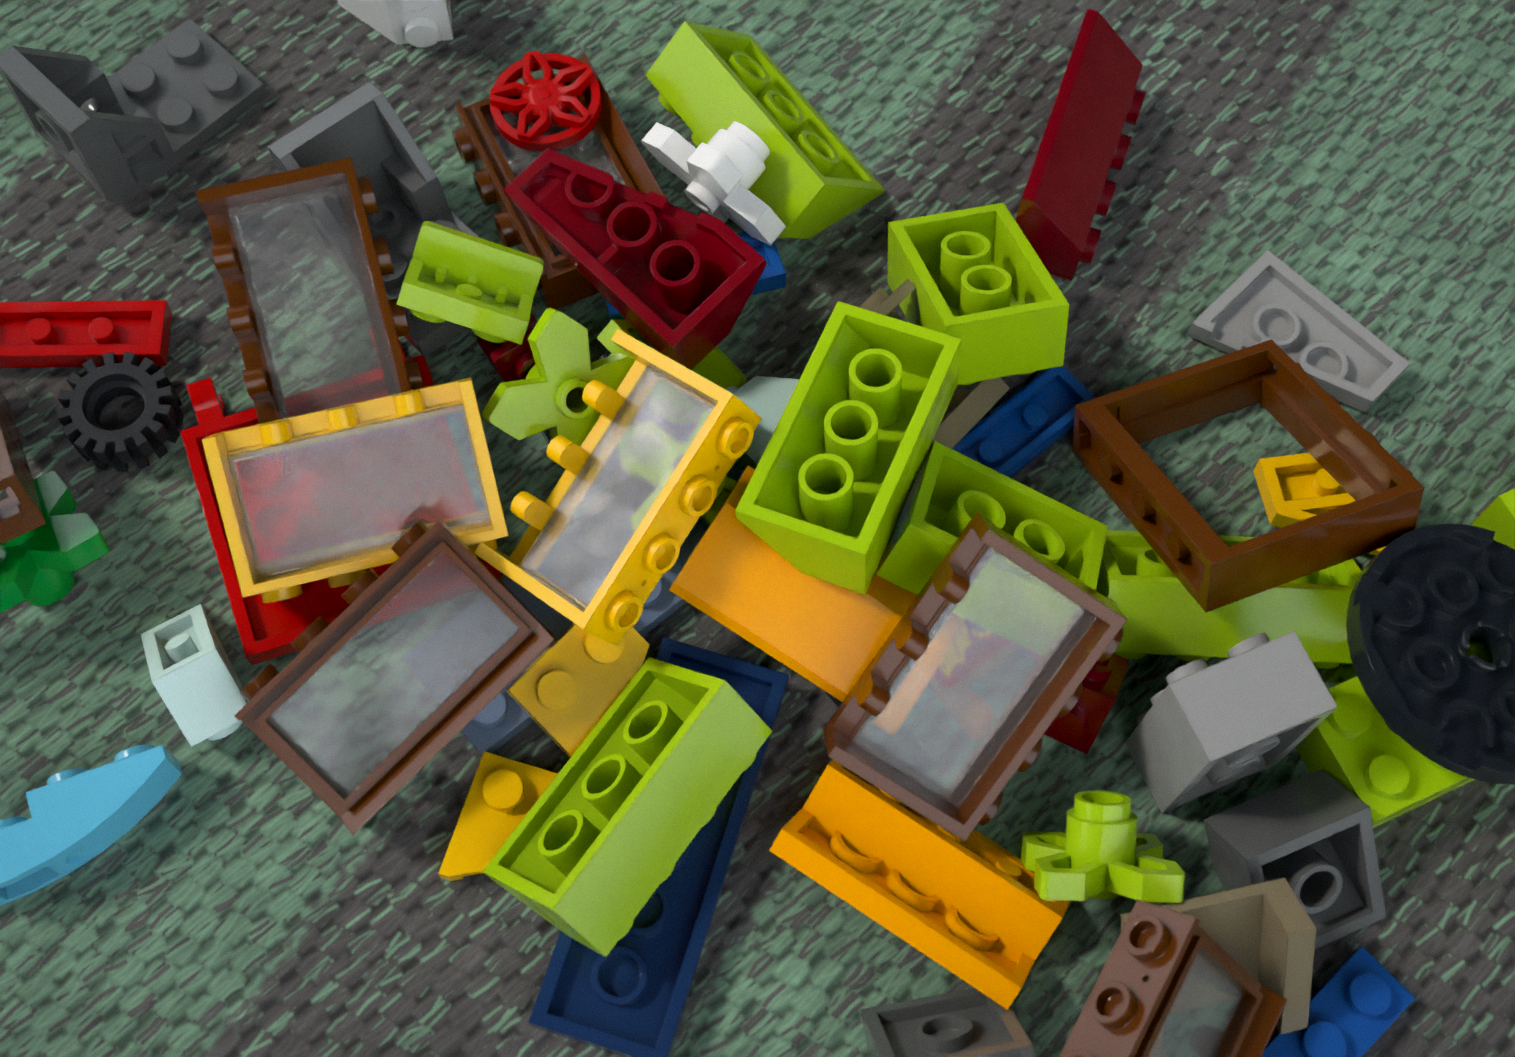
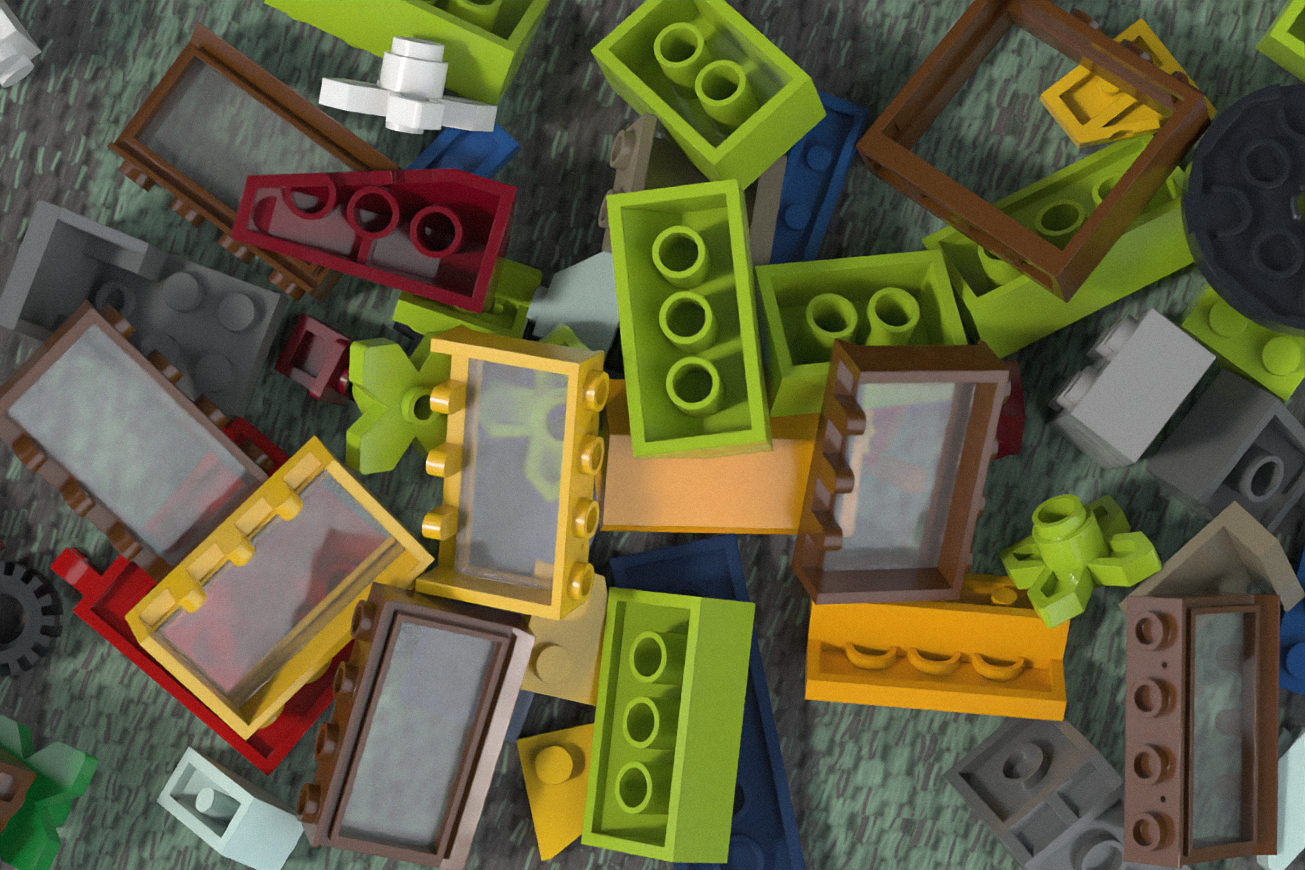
camera: 25 degrees left, 20 degrees up
(471, 283) = (258, 347): lime bracket -> none
(545, 101) = (196, 100): red wheel -> none

